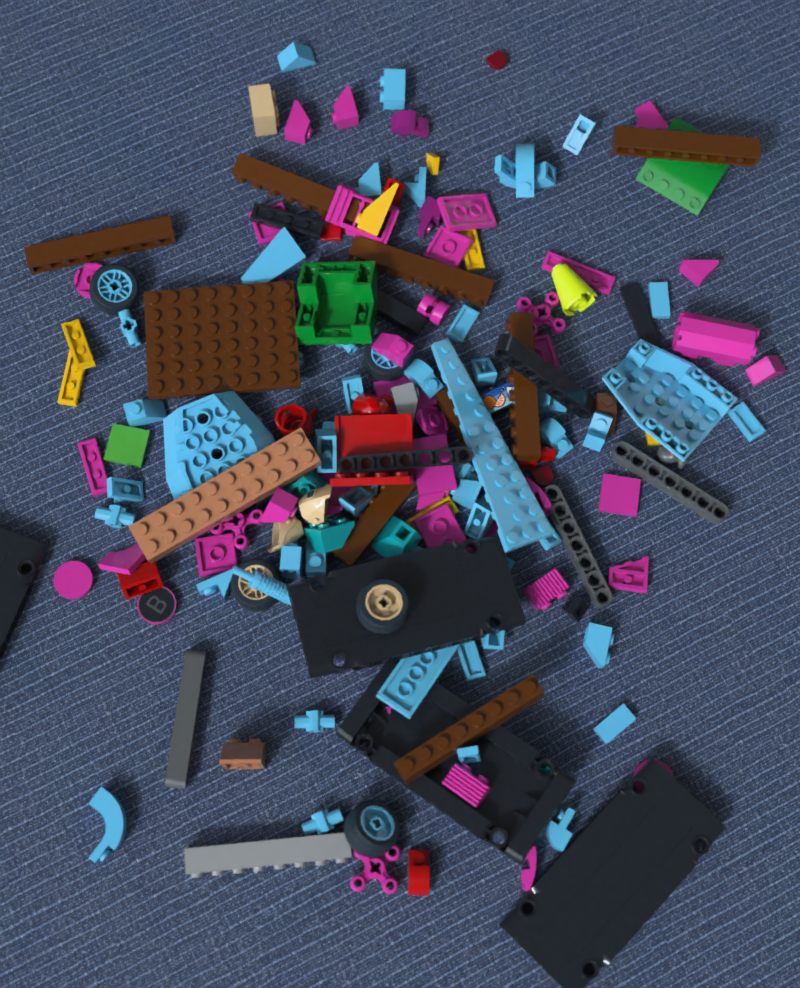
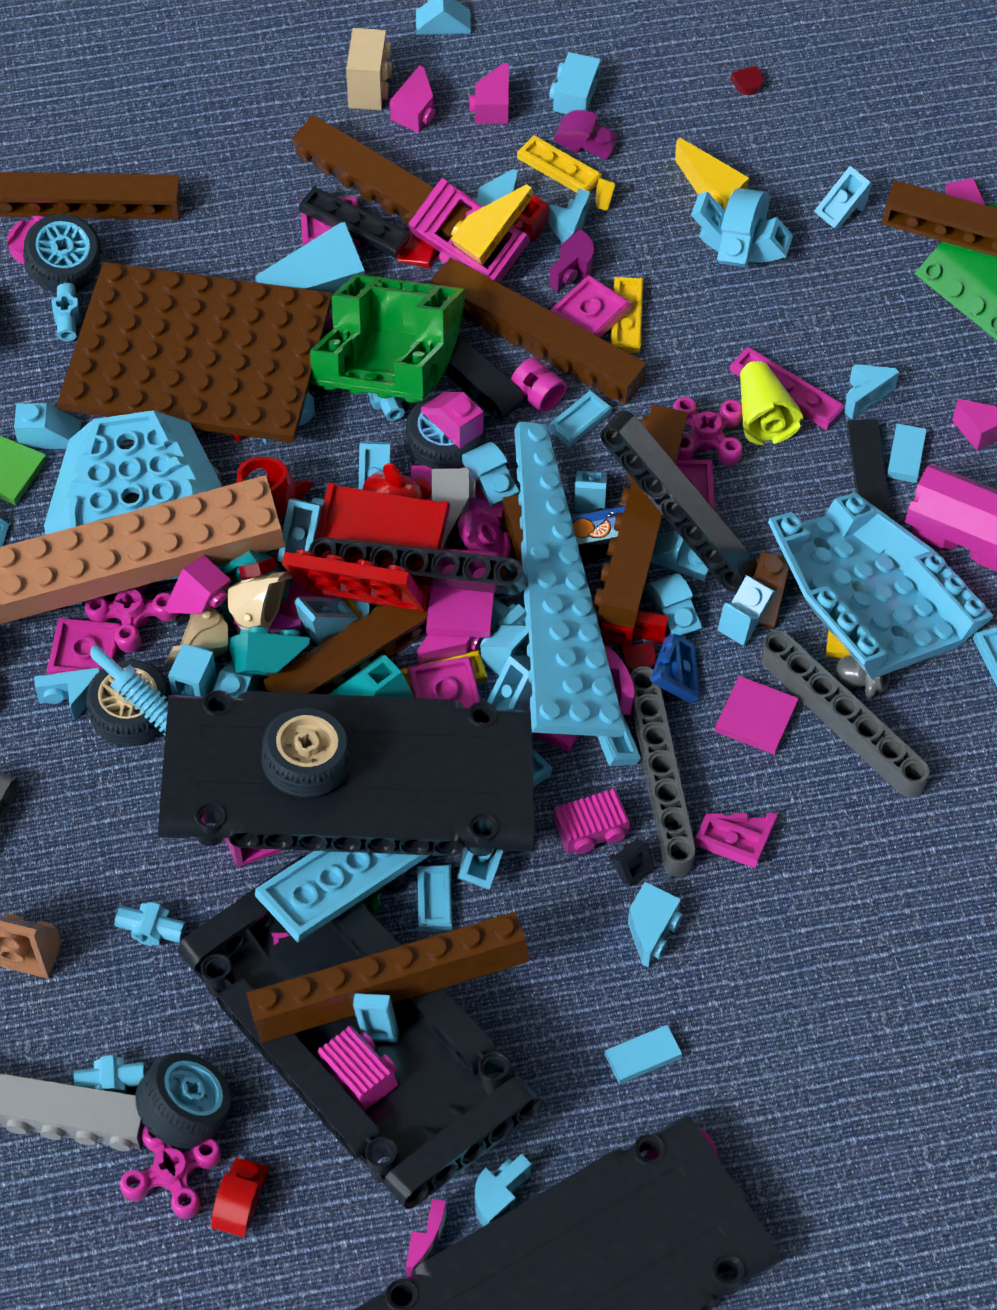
camera: 20 degrees right, 15 degrees down
(312, 487) = (257, 567): none -> dark red tile
(399, 149) = (558, 165): none -> yellow tile
(466, 212) = (634, 265): dark pink tile -> none
(496, 139) = (708, 173): none -> yellow slope
(568, 479) = (677, 668): none -> blue wing
(627, 261) = (870, 386): none -> medium azure slope

